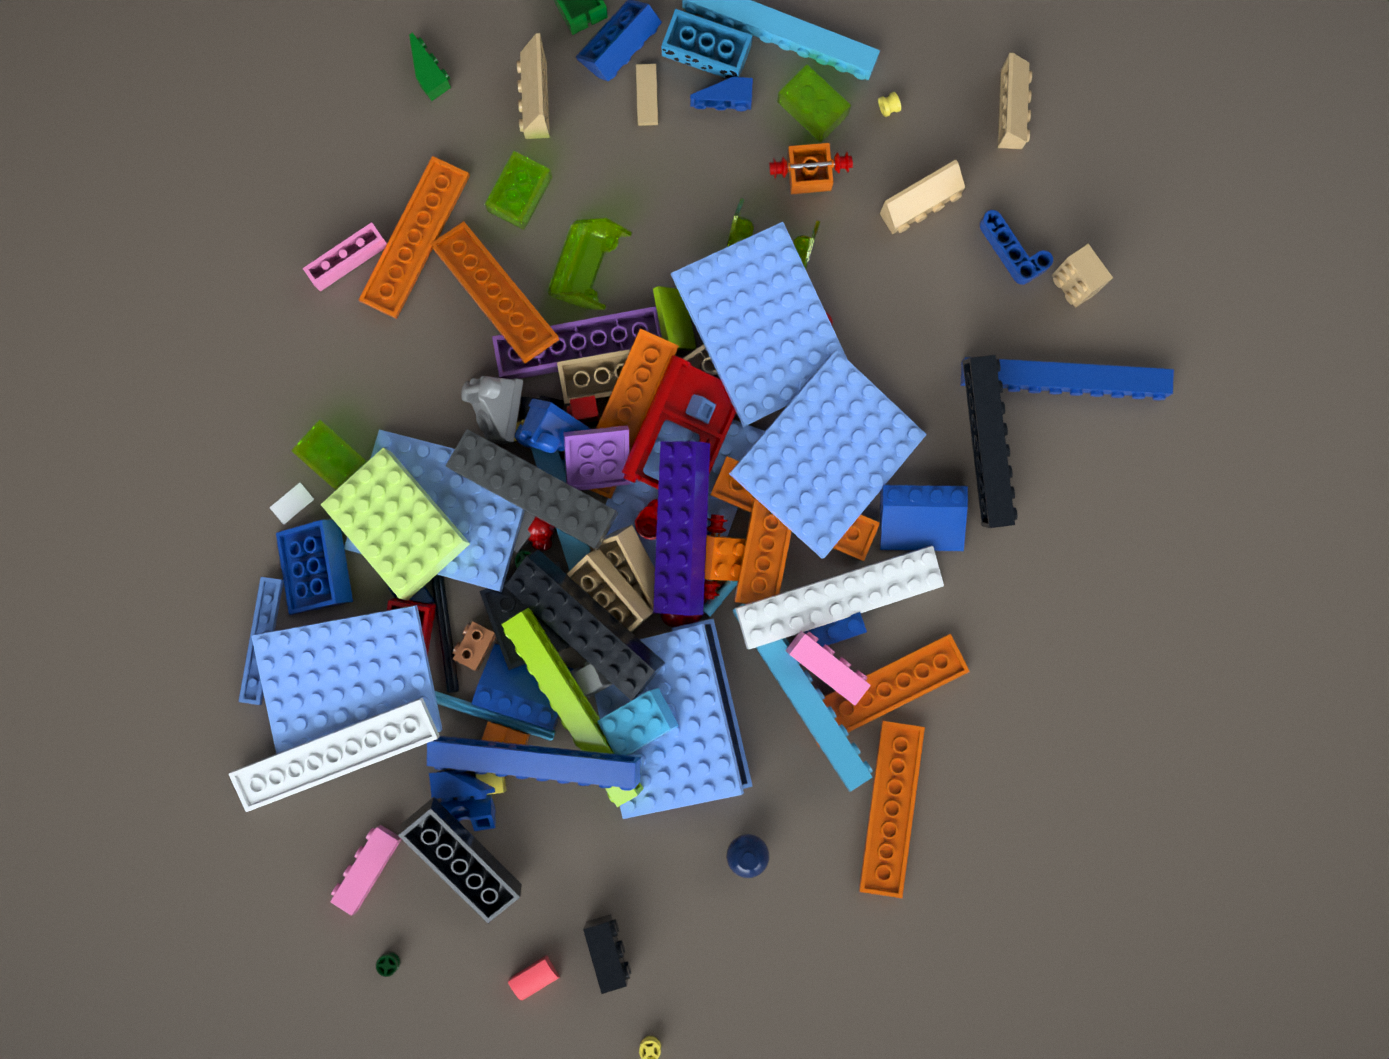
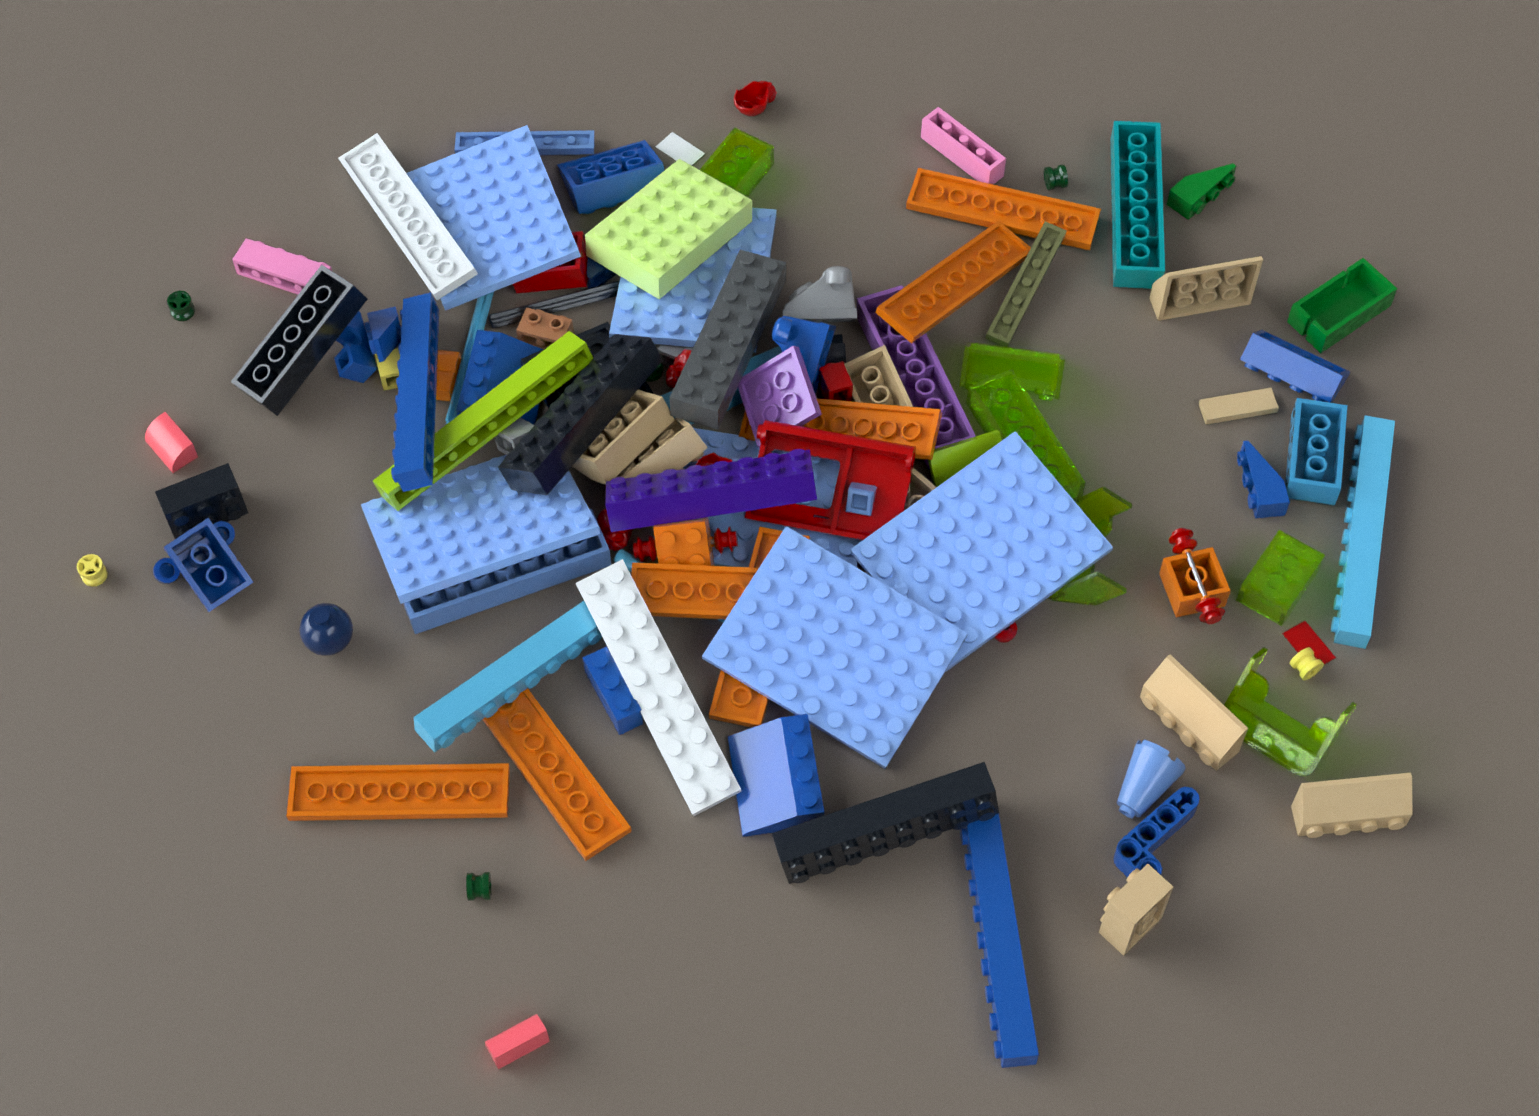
camera: 80 degrees right, 25 degrees down
(250, 428) = (754, 97): none -> red hair
(390, 185) = (1055, 177): none -> dark green wheel
(433, 123) = (1137, 204): none -> teal brick
(500, 234) = (1026, 284): none -> olive plate
(518, 190) = (1082, 291): clear neon green brick -> none
(637, 273) = (1006, 406): none -> clear neon green brick
(638, 723) = (473, 485): medium azure brick -> none
(667, 953) = (205, 563): none -> blue piece
(827, 667) = (565, 678): bright pink brick -> none
(867, 99) = (1303, 636): none -> red sticker
(944, 138) = (1277, 733): none -> clear neon green windscreen
(970, 244) = (1147, 778): none -> medium blue cone
(980, 754) = (478, 886): none -> dark green wheel
(1105, 738) = (517, 1041): none -> coral brick

